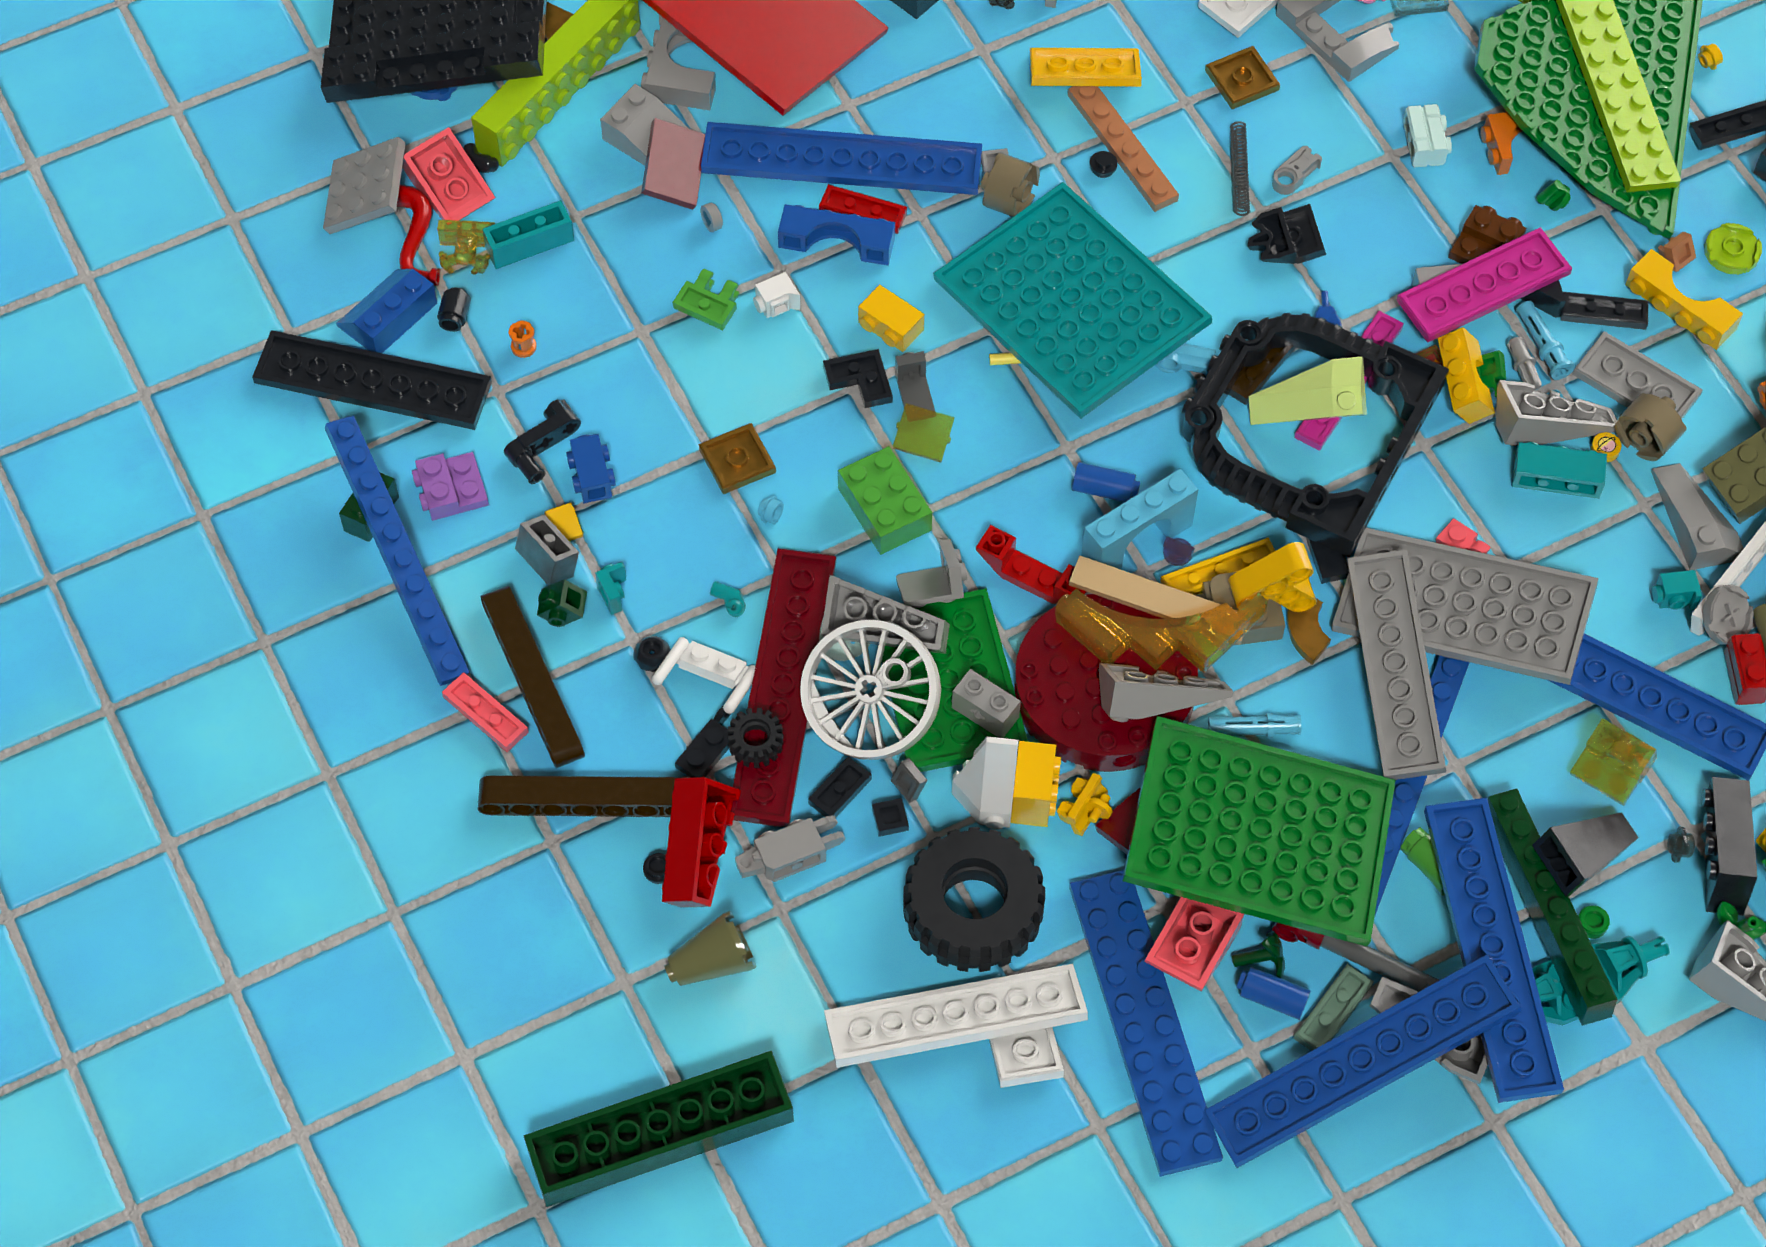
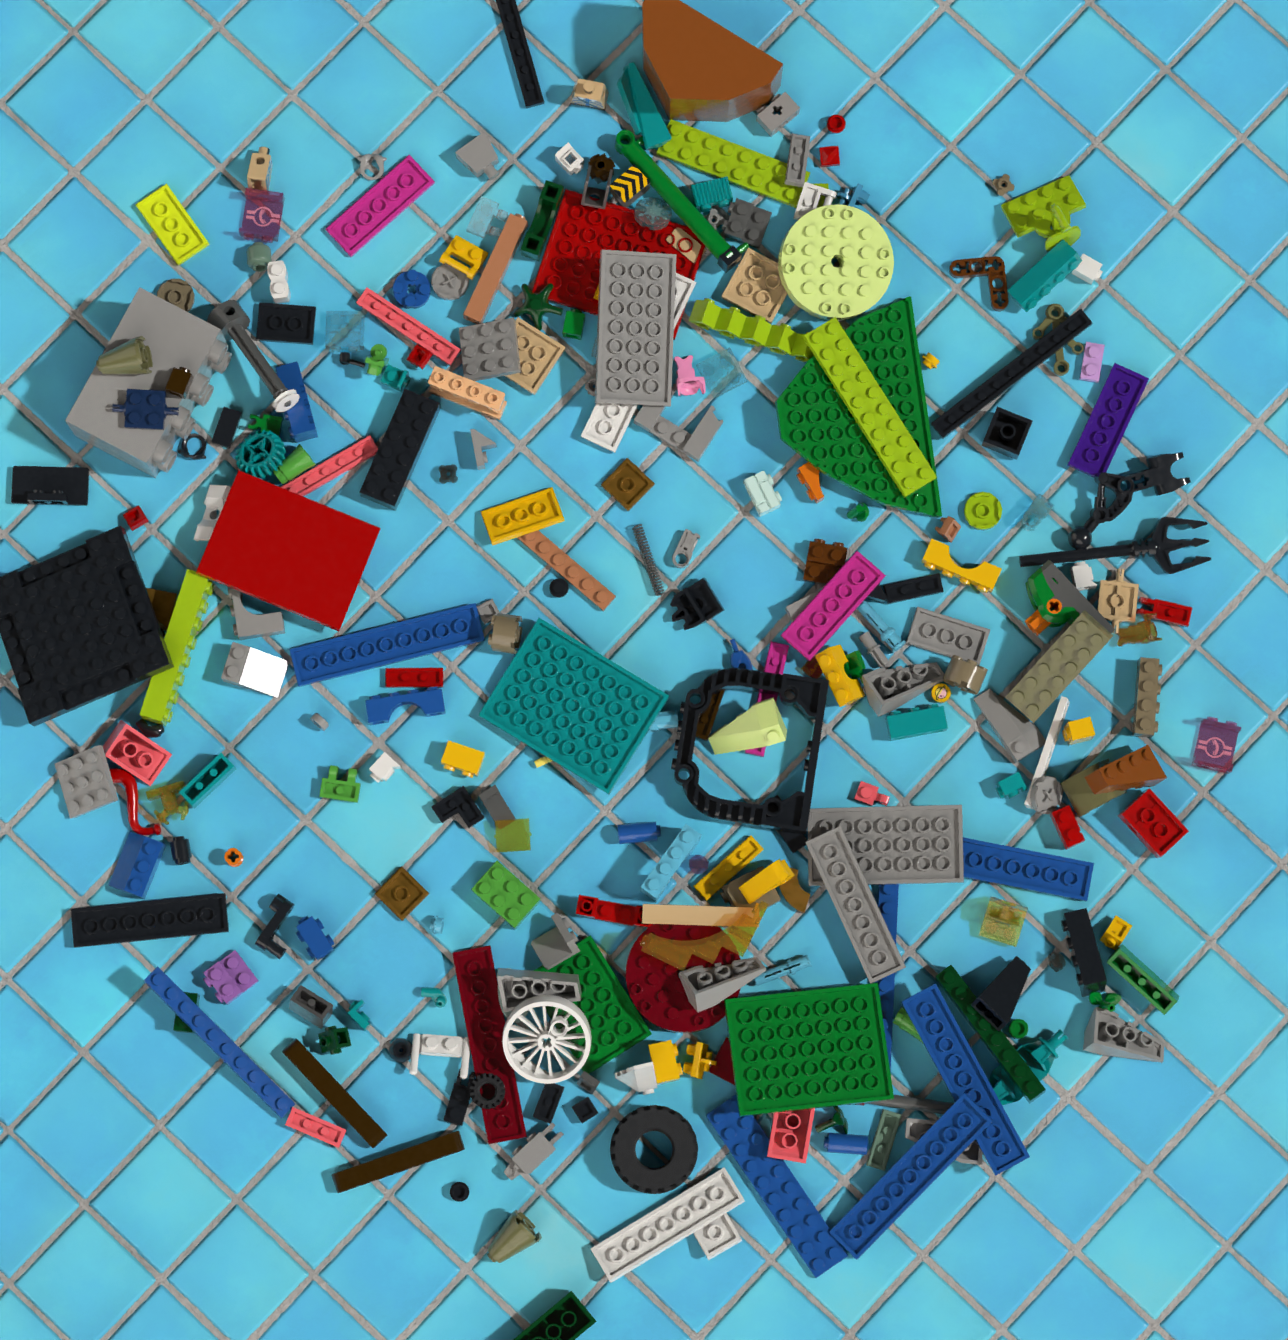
camera: 20 degrees left, 20 degrees up
(565, 520) = (312, 980): yellow slope -> none
(673, 164) = (280, 691): tile -> none
(696, 840) = (477, 1171): red wedge -> none
(986, 704) = (618, 1020): light grey brick -> none

